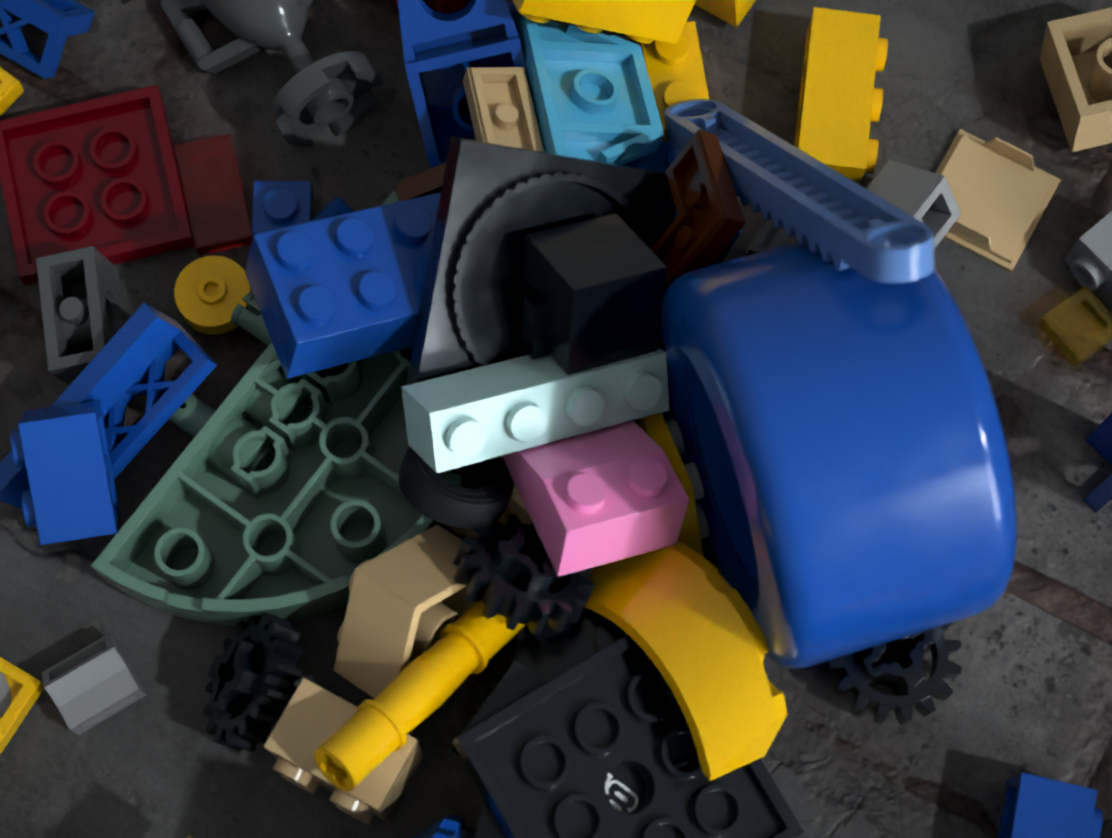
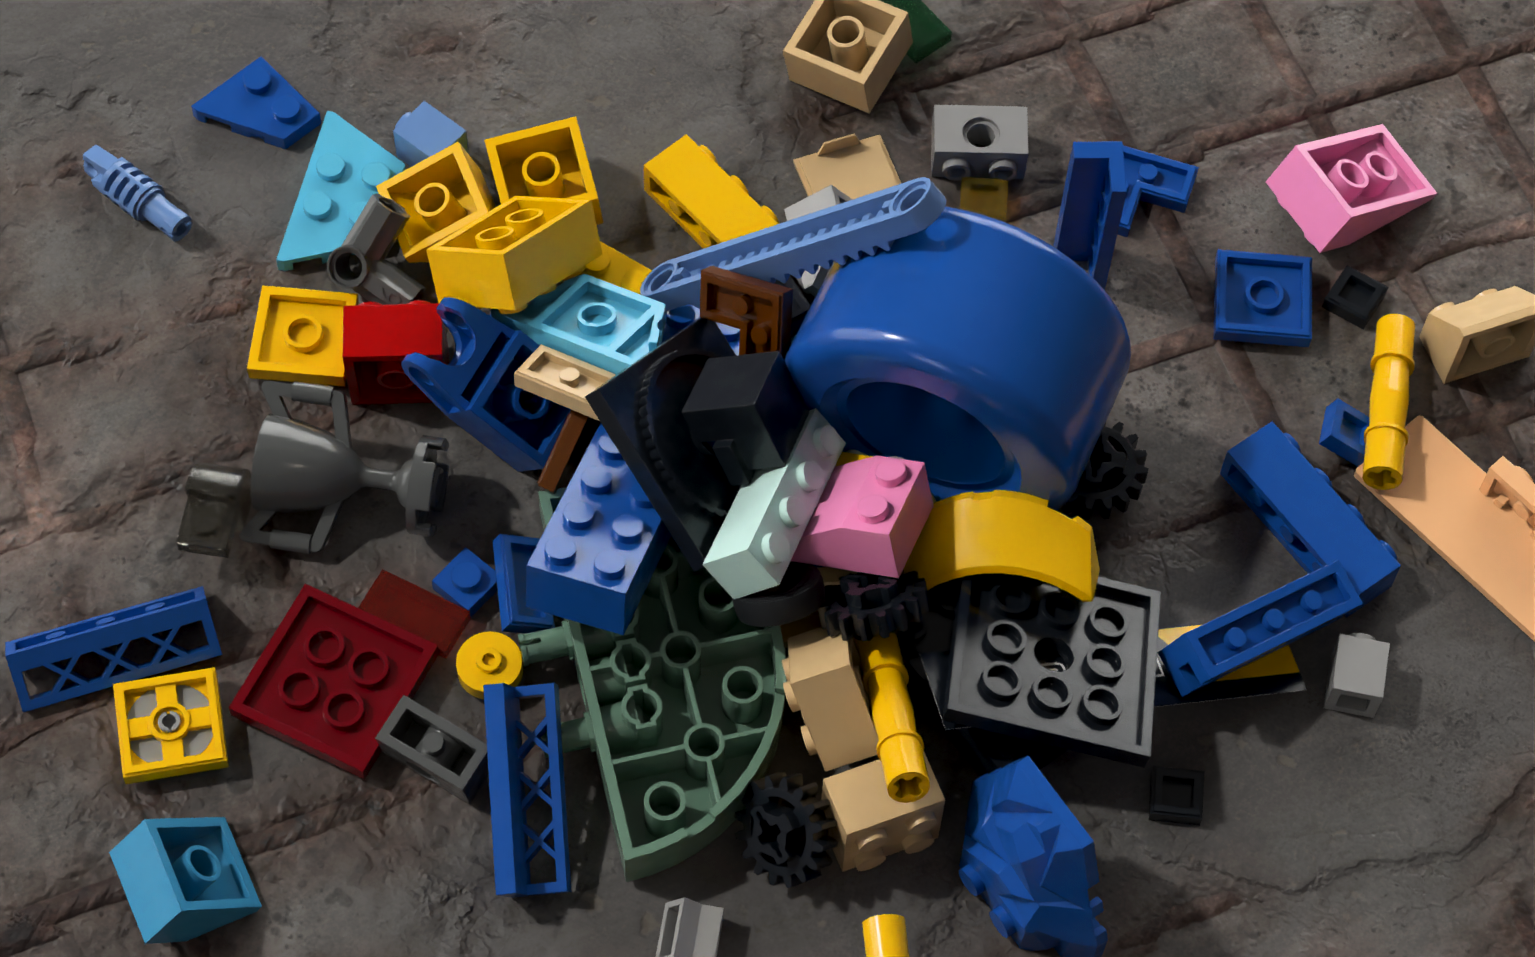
camera: 50 degrees left, 10 degrees down
(67, 472) = (550, 823): blue brick -> none

